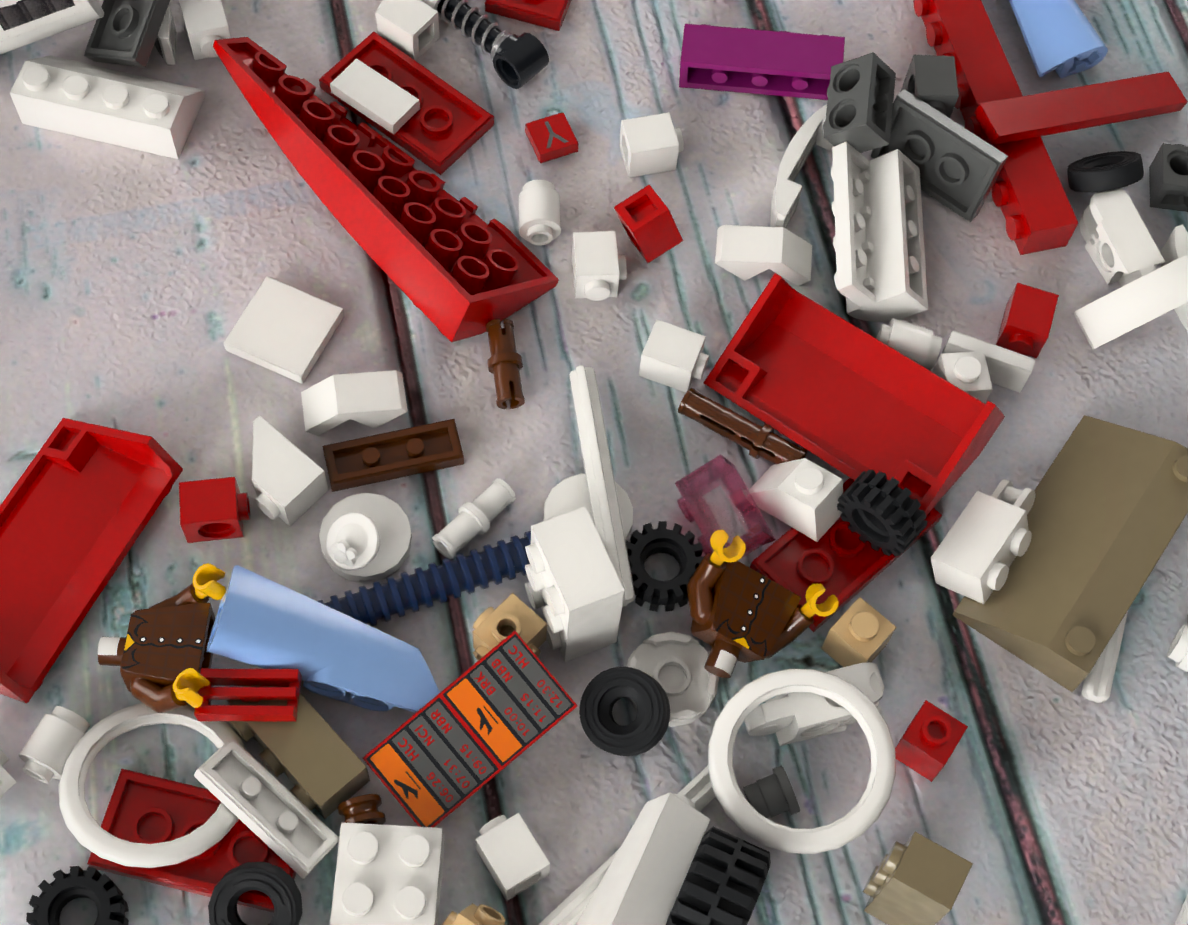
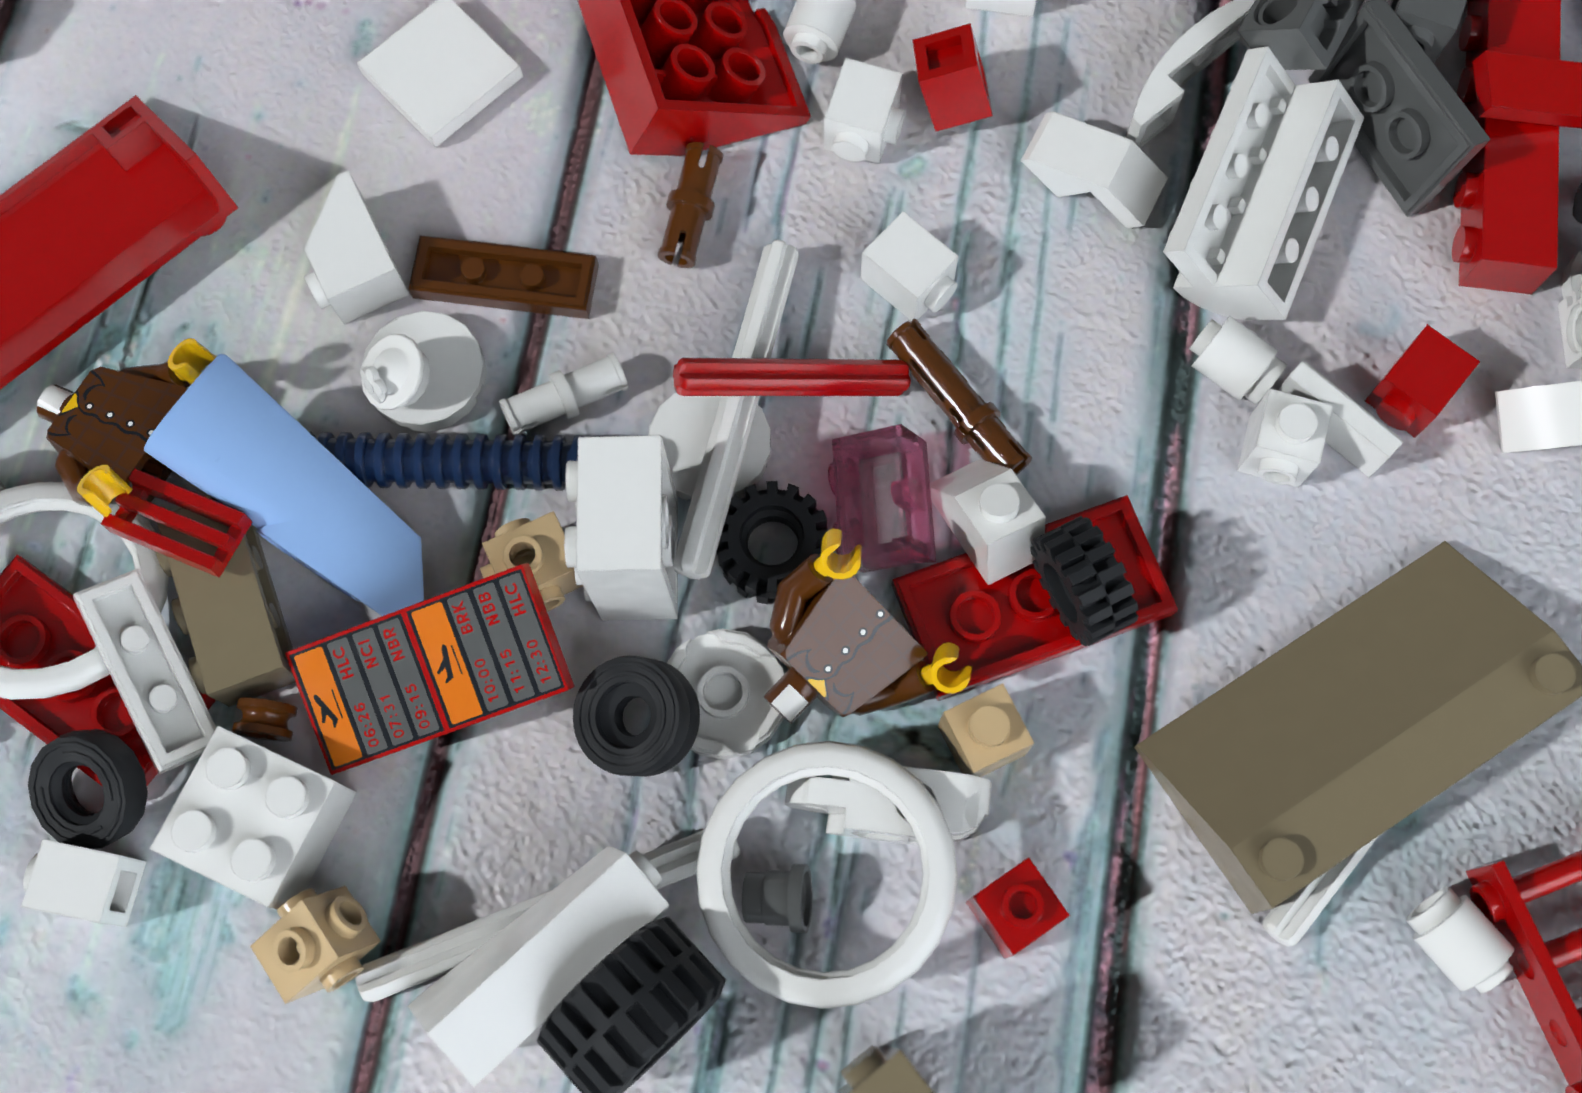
camera: 30 degrees right, 10 degrees up
(212, 509) = (251, 270): red brick -> none
(363, 397) = (486, 187): white slope -> none
(511, 855) = (418, 843): white brick -> none
(630, 451) = (790, 377): none -> red axle
(851, 396) = (1123, 408): red slope -> none
(984, 542) = (1218, 668): white brick -> none

